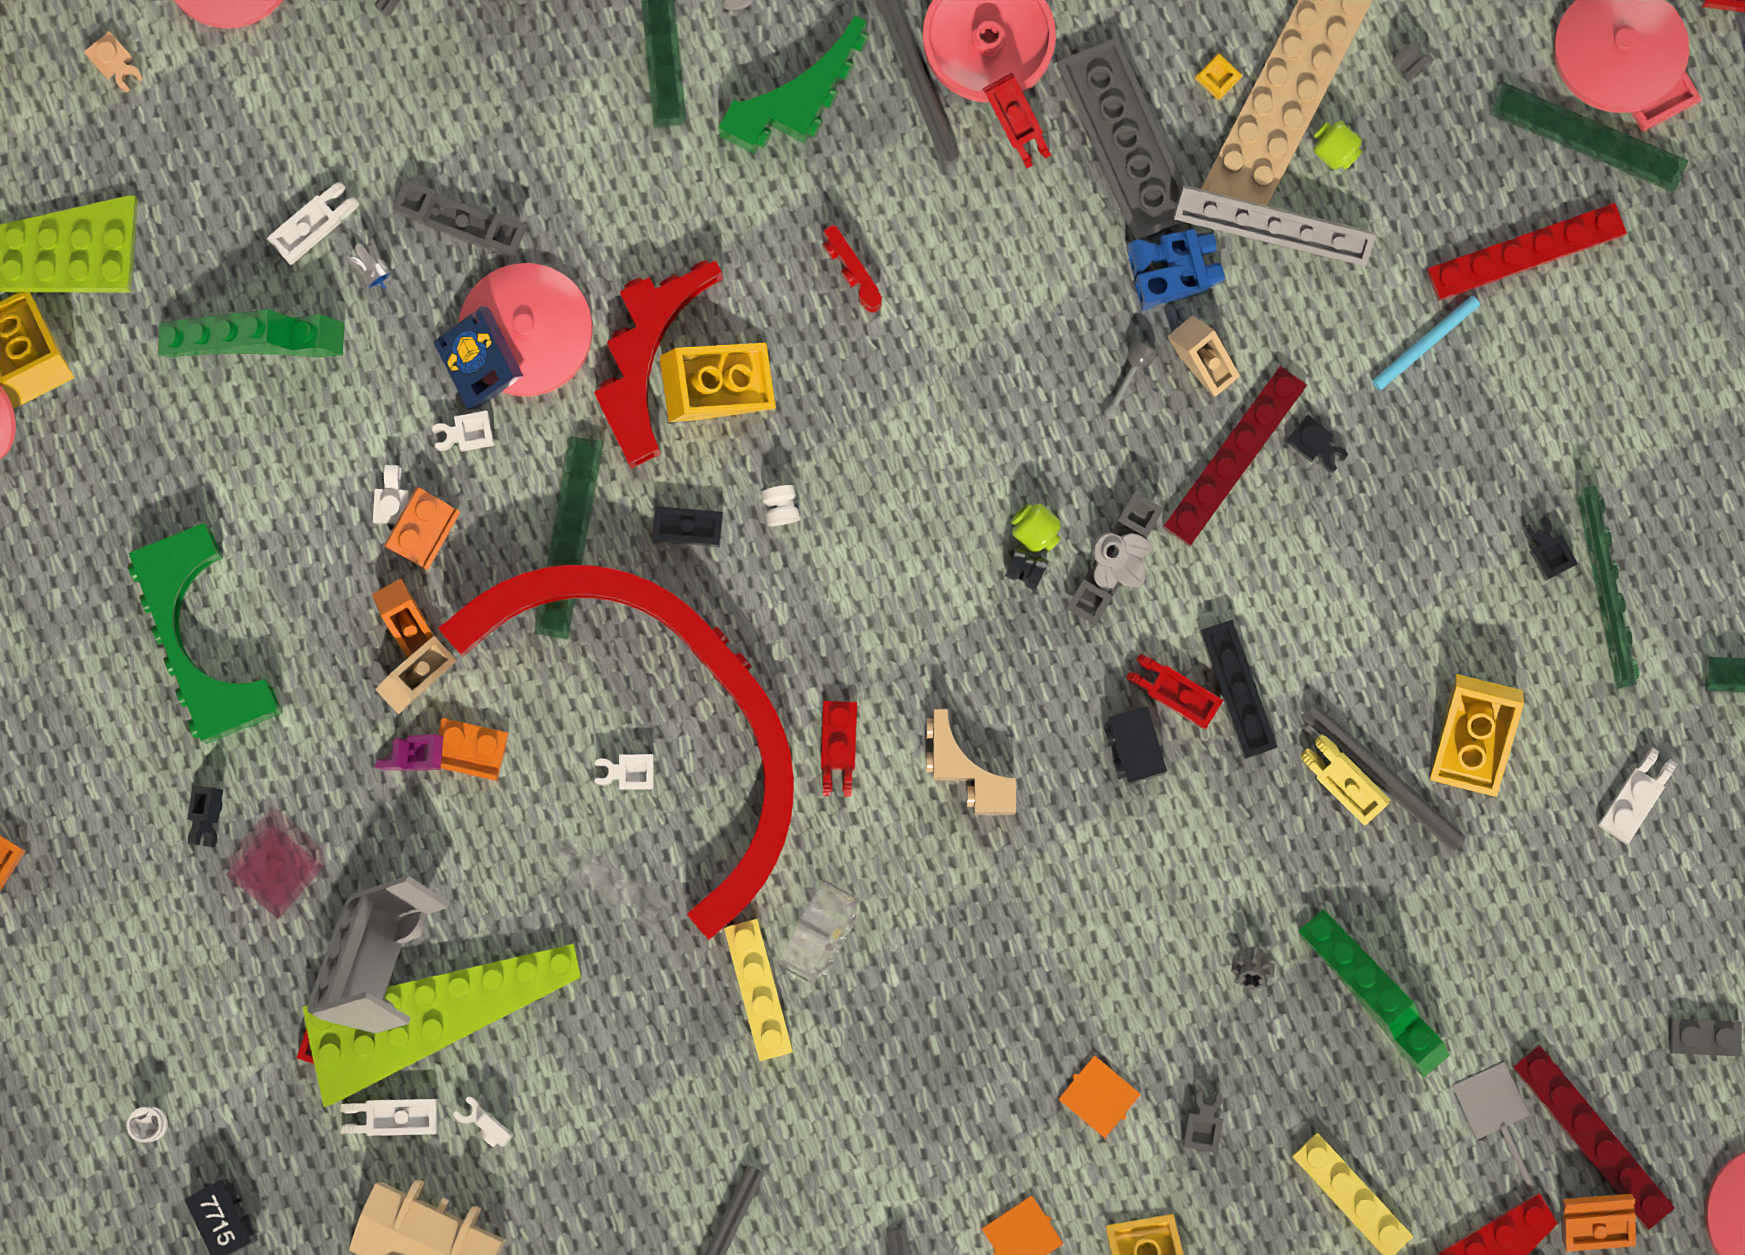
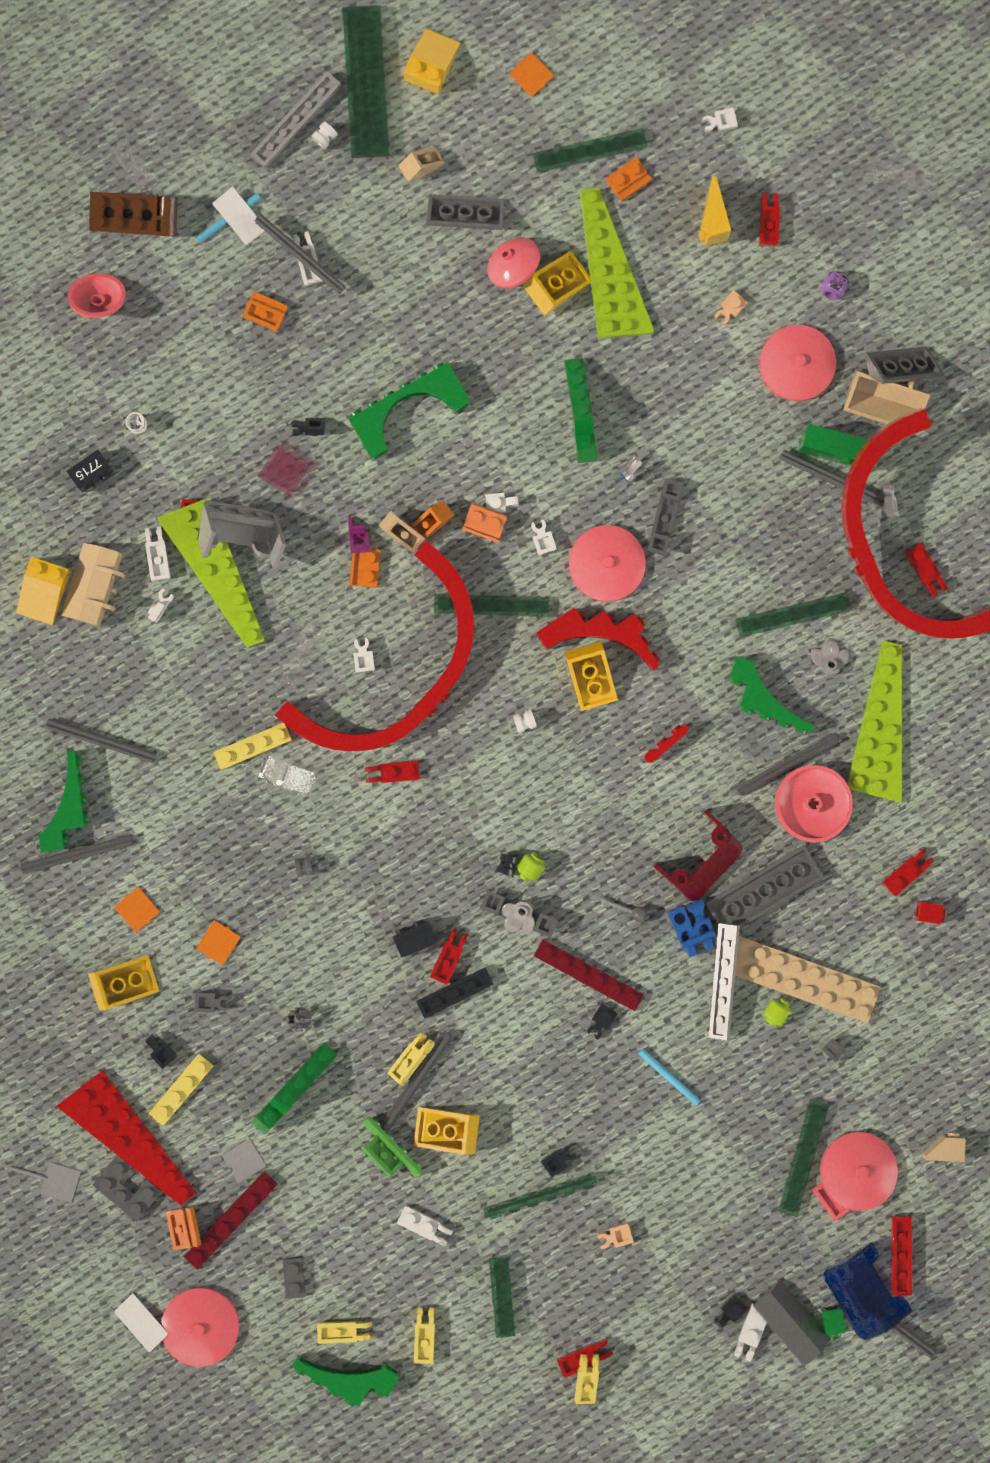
camera: 80 degrees right, 5 degrees up
(311, 224) = (650, 433): white hinge -> none
(473, 351) = (588, 536): dark blue container -> none
(687, 526) = (506, 671): black plate -> none
(948, 763) = (391, 834): tan arch -> none
(984, 924) = (304, 866): none -> dark grey wheel
(1016, 117) = (767, 825): red hinge -> none
(1103, 254) = (697, 885): none -> dark red windscreen
(1204, 354) = (643, 950): tan slope -> none
(1218, 76) = (809, 939): yellow tile -> none
(1285, 1222) = (162, 1054): none -> black plate
(1502, 844) = (386, 1152): none -> bright green bracket
(1526, 252) = (730, 1129): red plate -> none
(1689, 462) = (619, 1235): none -> light nougat plate

